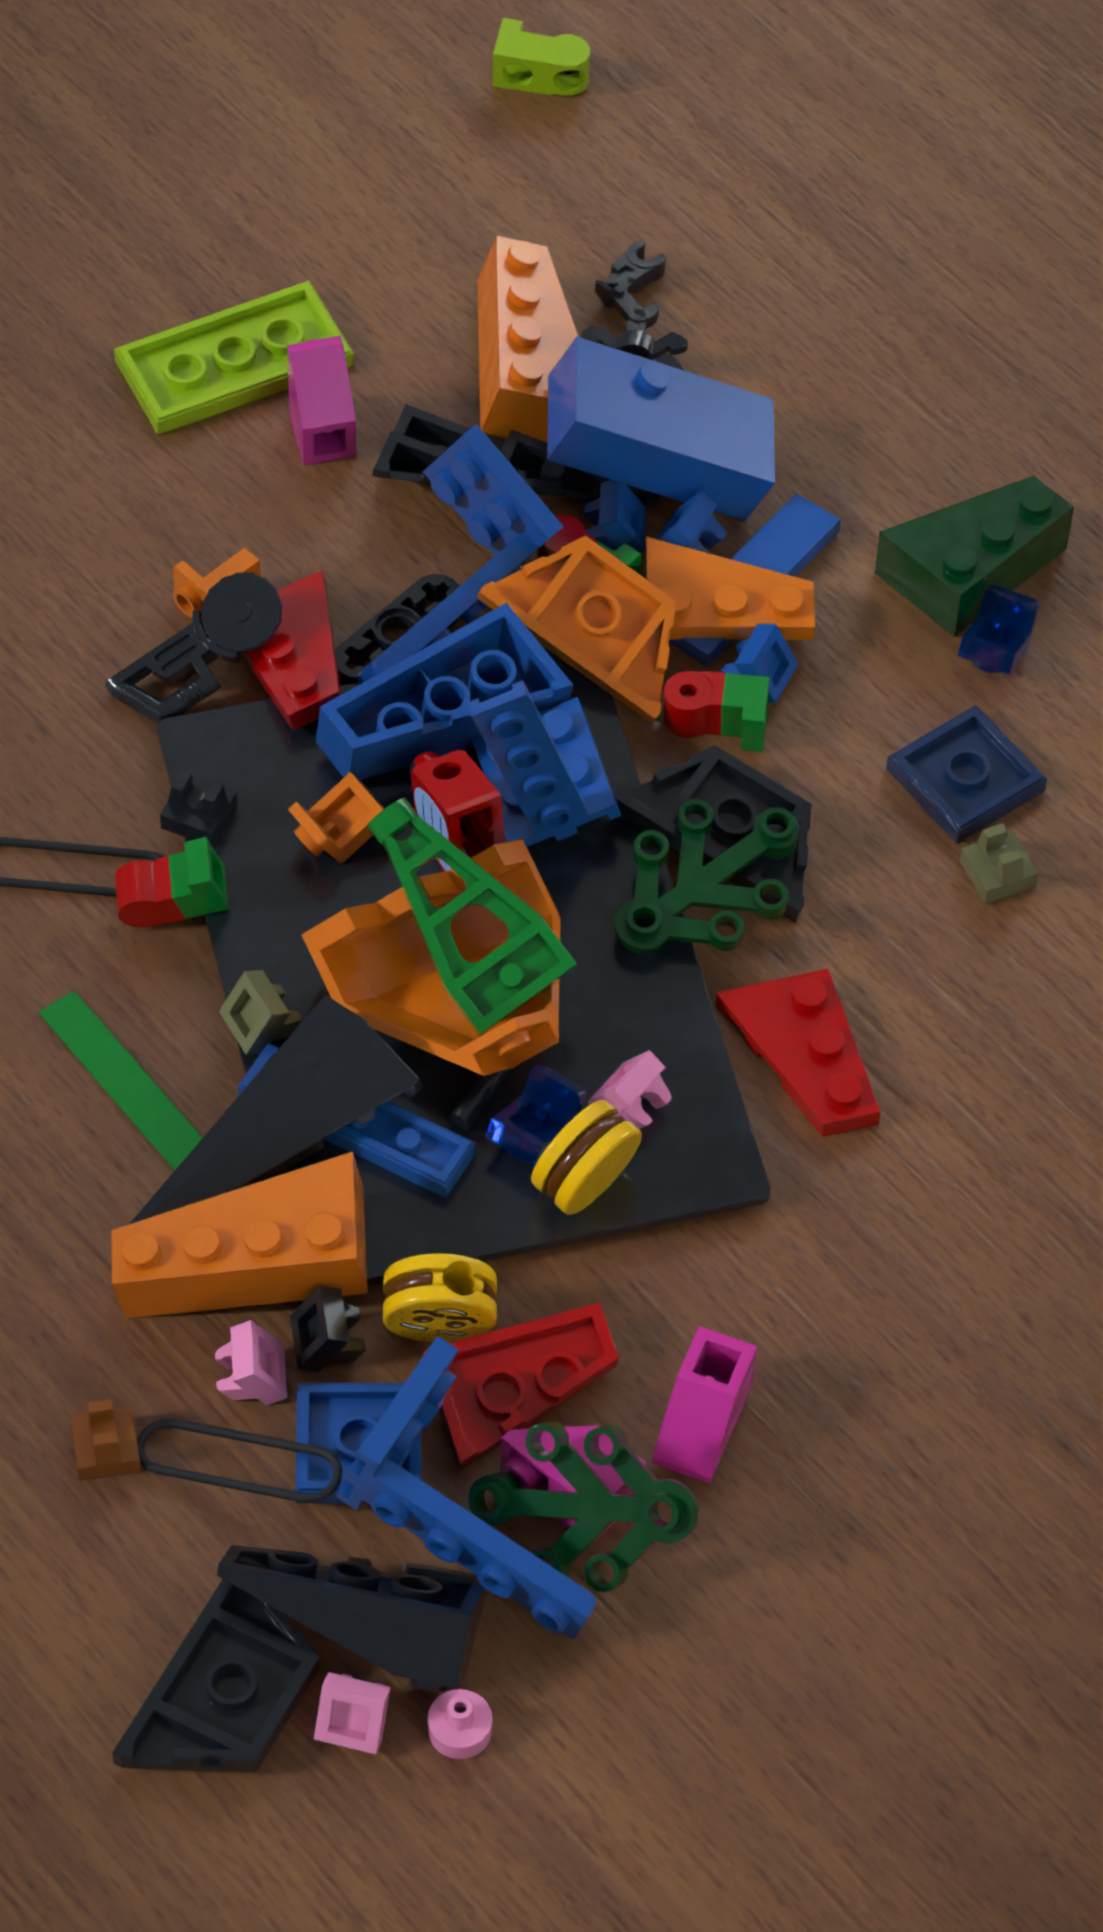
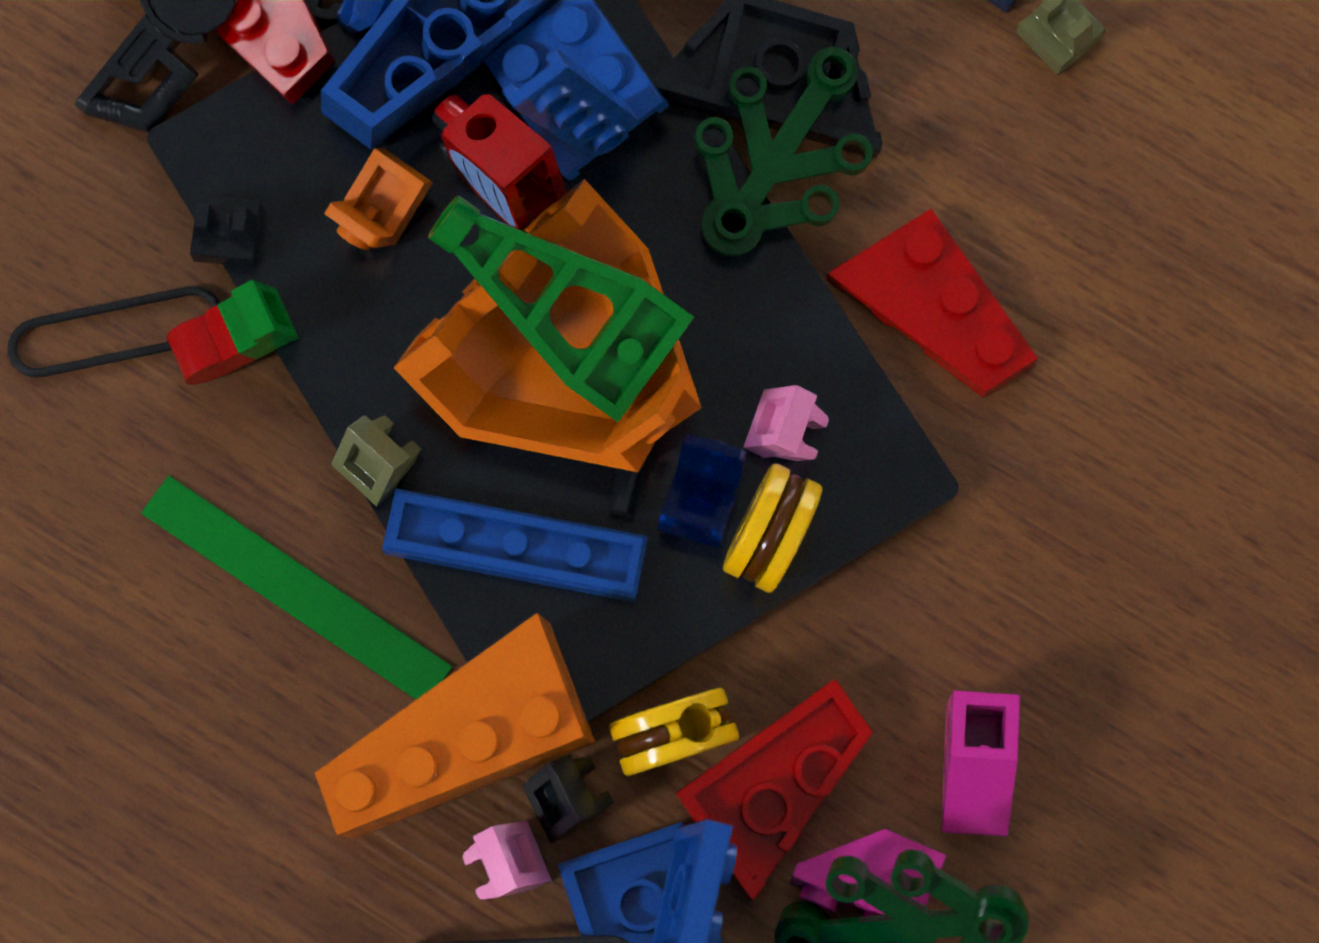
camera: 15 degrees left, 20 degrees up
(312, 1086) = (459, 546): black wedge -> none

